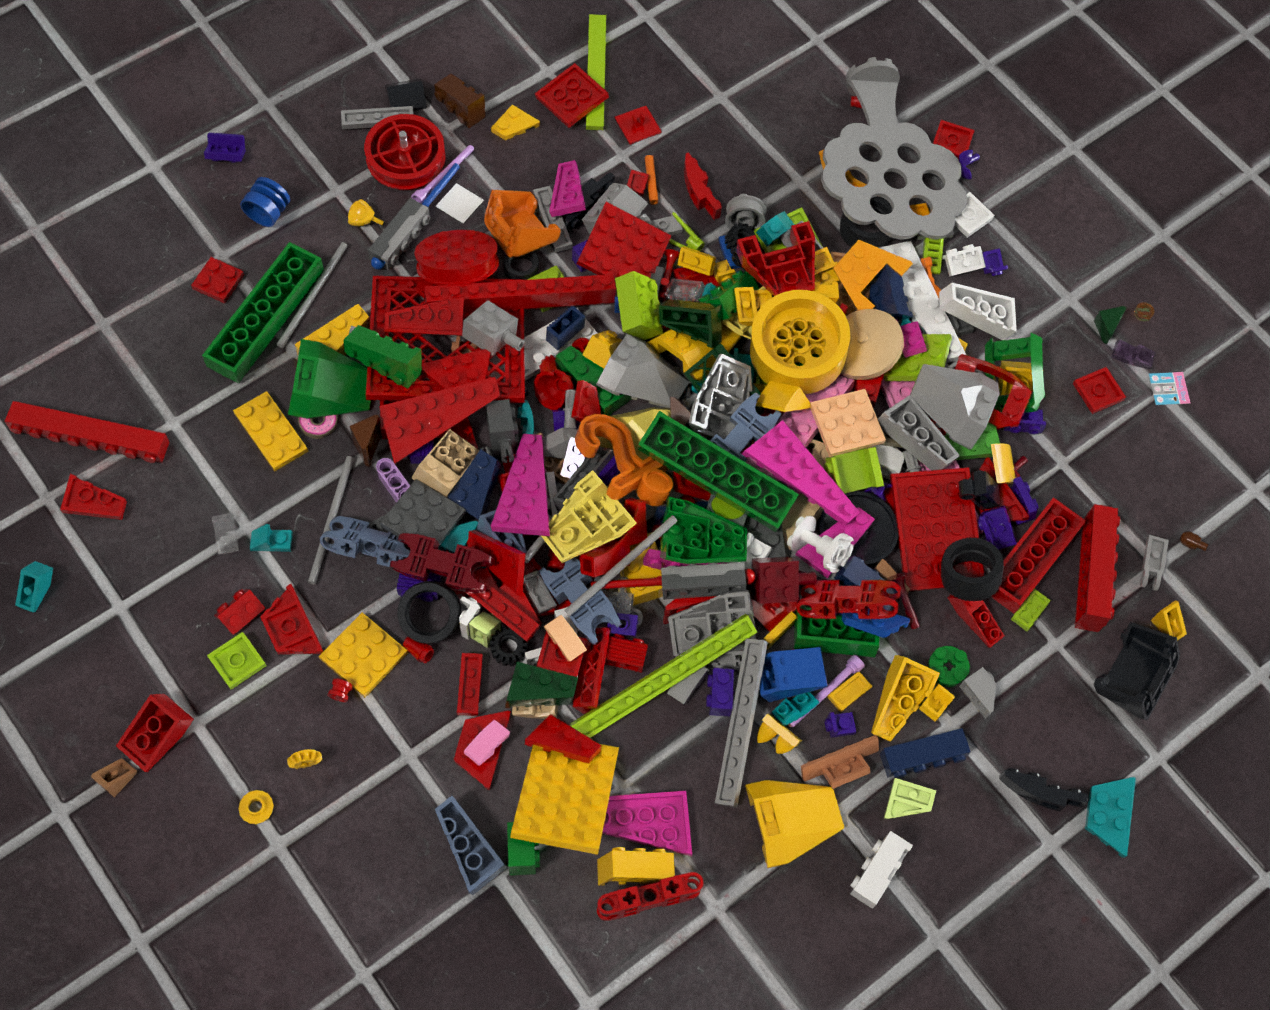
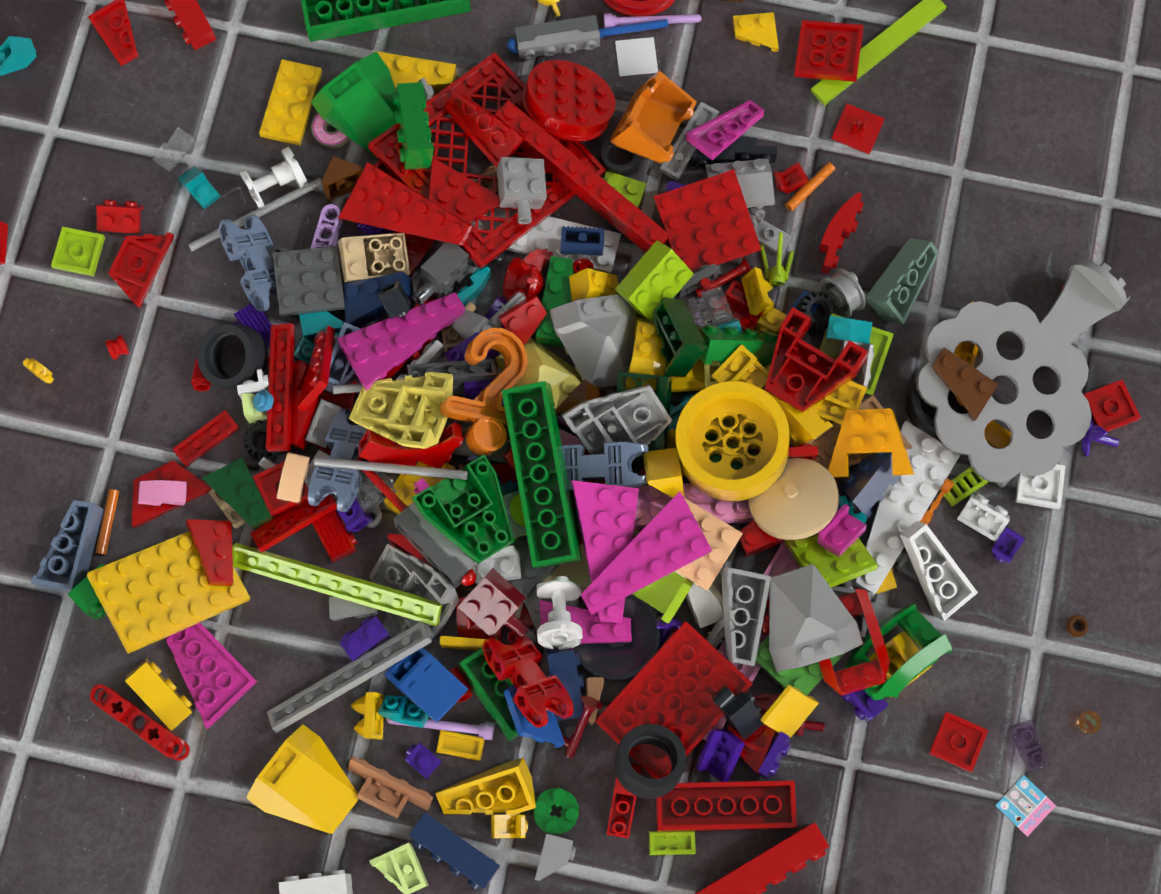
camera: 55 degrees right, 10 degrees up
(312, 295) = (440, 23): light grey piece -> none
(324, 468) = (281, 173): none -> white piece
(363, 654) = (163, 338): yellow plate -> none
(457, 567) = (279, 344): dark red piece -> none
(468, 805) = (107, 522): none -> orange piece
(487, 613) = (263, 401): none -> dark azure plate
(498, 468) = (395, 300): none -> black brick
(768, 177) = (902, 281): none -> sand green wedge
(835, 448) = (659, 549): none -> dark pink wing
(874, 191) = (966, 382): none -> reddish brown wing
(1078, 264) = (1084, 626): none -> reddish brown plate
(1107, 321) = (1043, 697): dark green slope -> none

